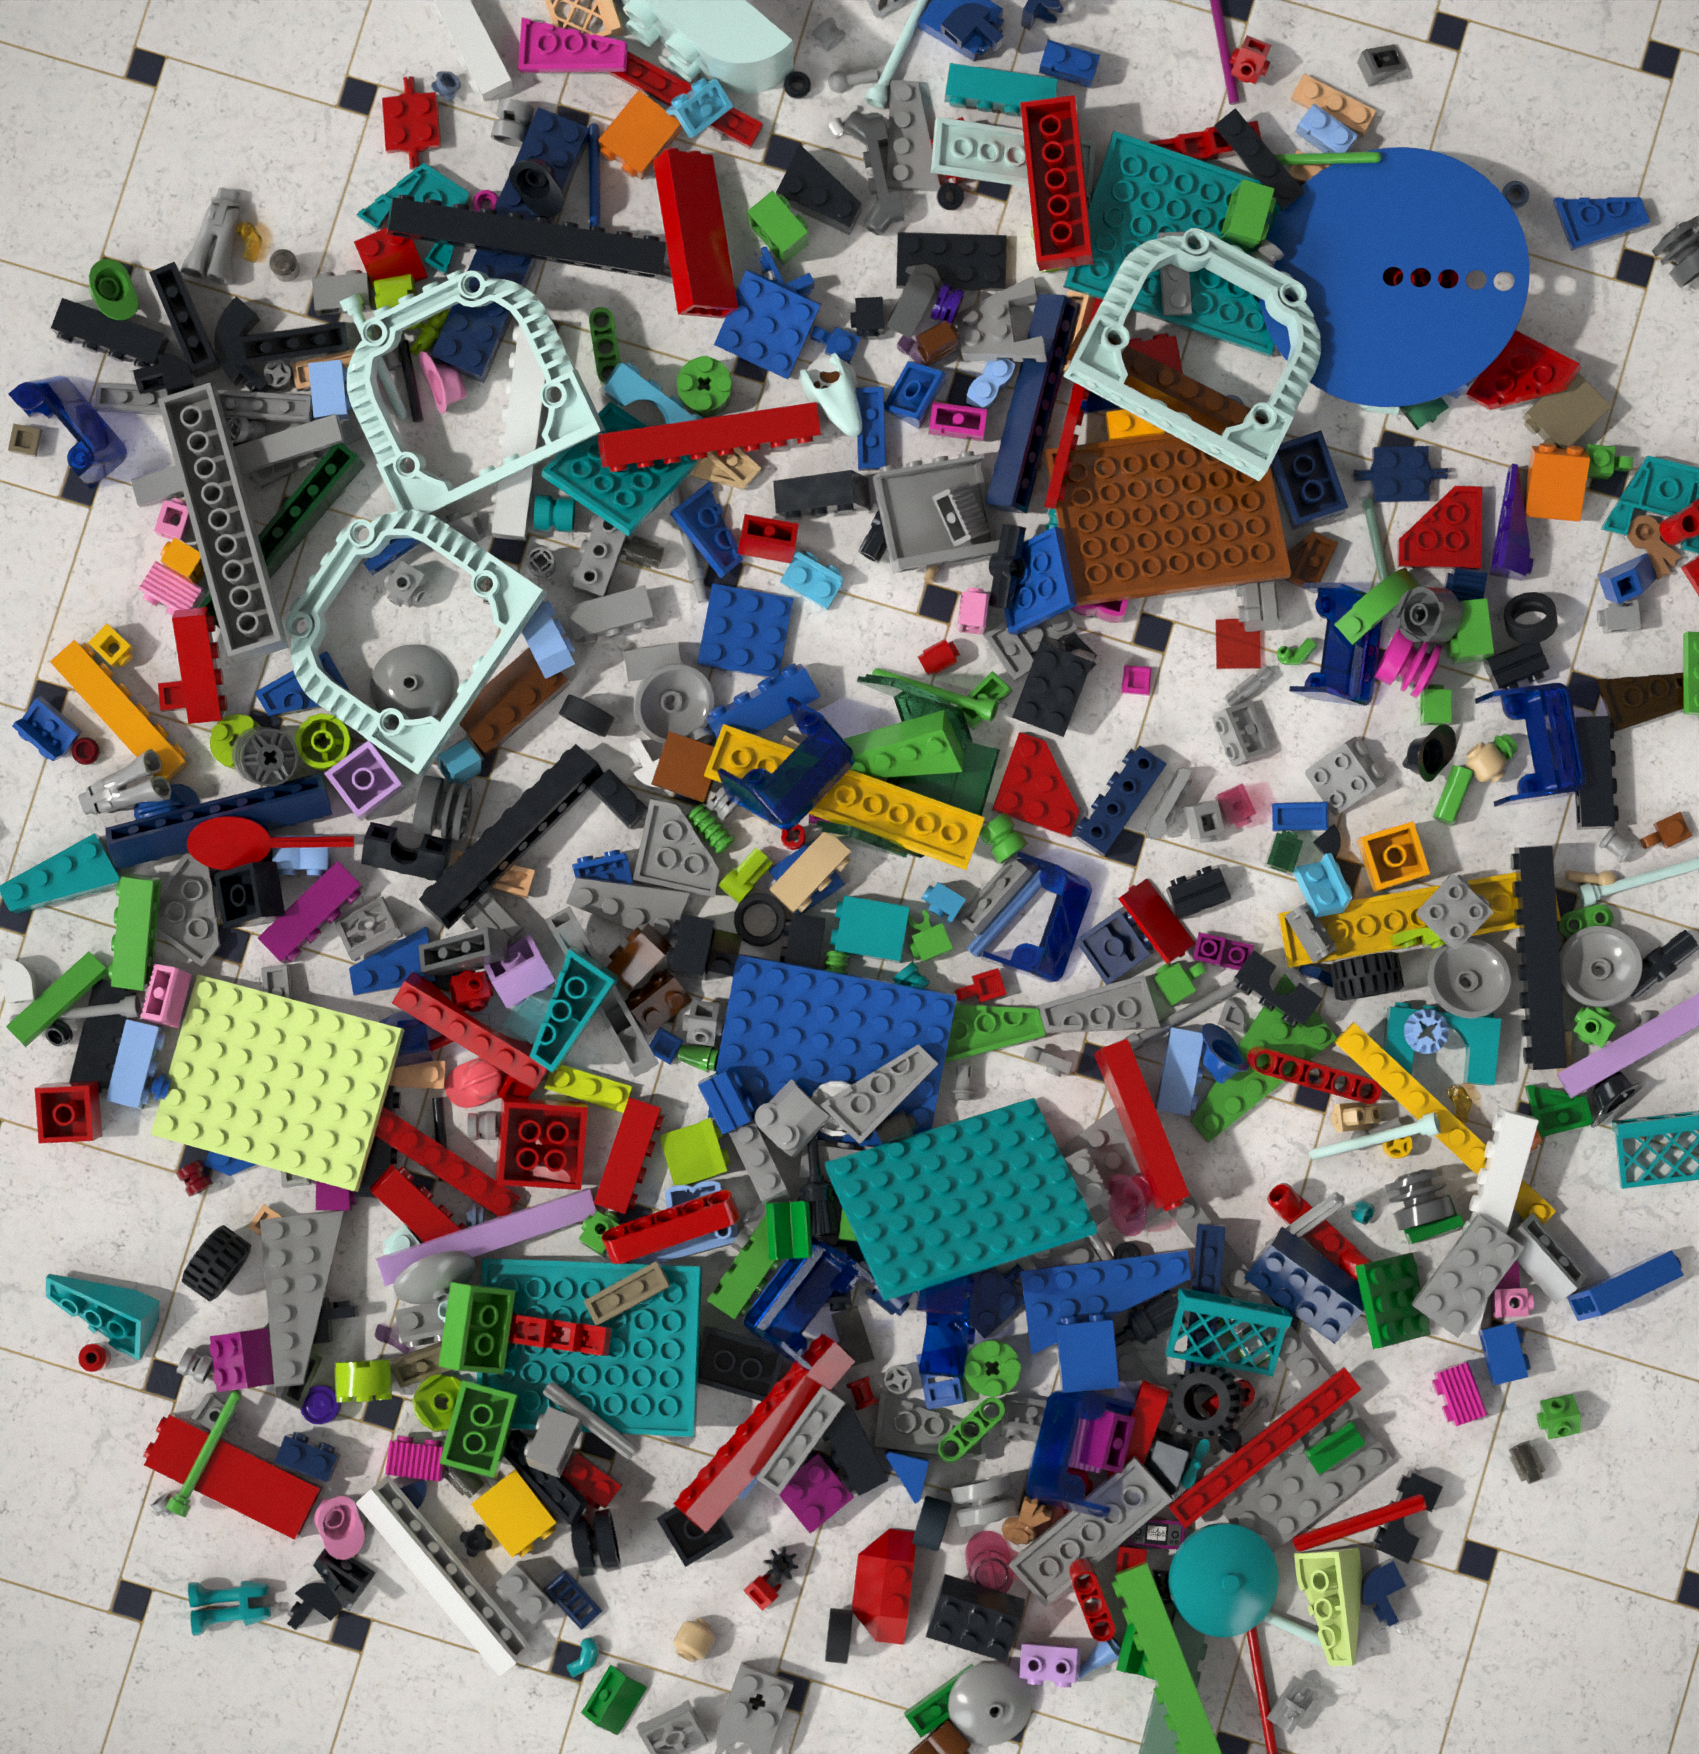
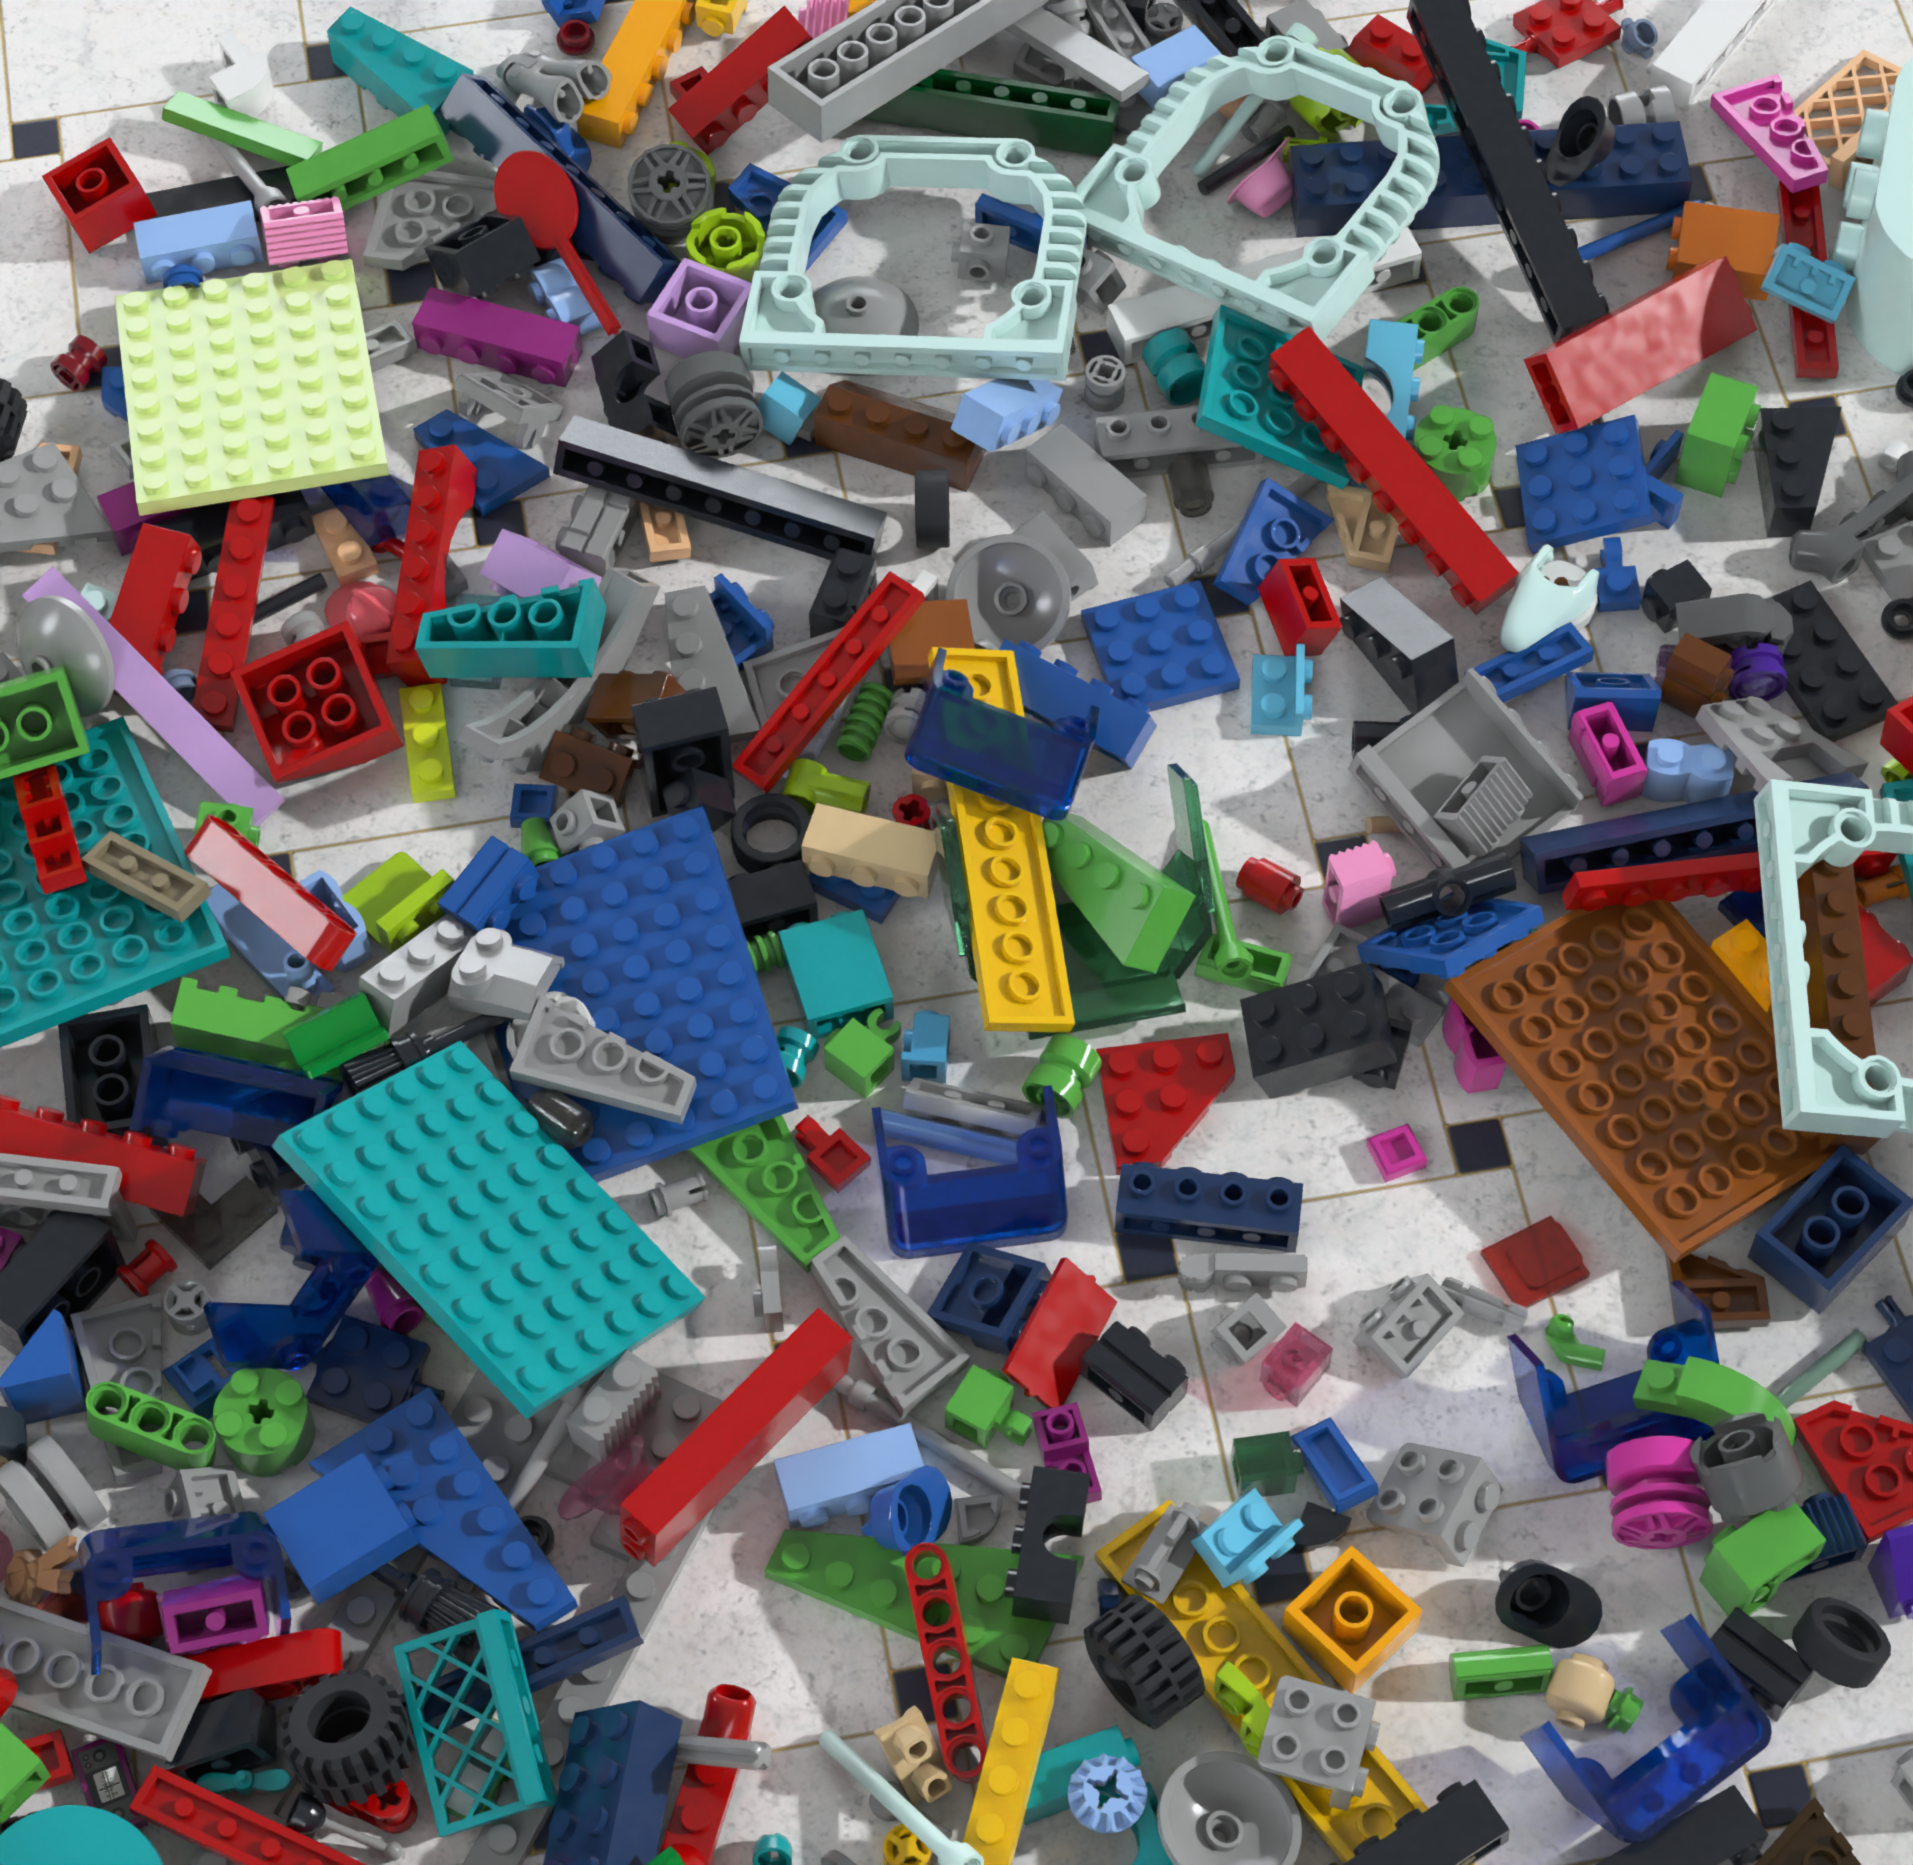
camera: 65 degrees right, 25 degrees down
(59, 1033) = (200, 154): black plate -> none
(463, 952) = (533, 503): dark grey brick -> none
(471, 990) = (476, 537): red brick -> none
(628, 1156) = (352, 823): red brick -> none
(687, 840) = (828, 682): none -> red plate
(1259, 605) = (1609, 1250): light grey brick -> none
(1435, 705) = (1620, 1575): bright green brick -> none

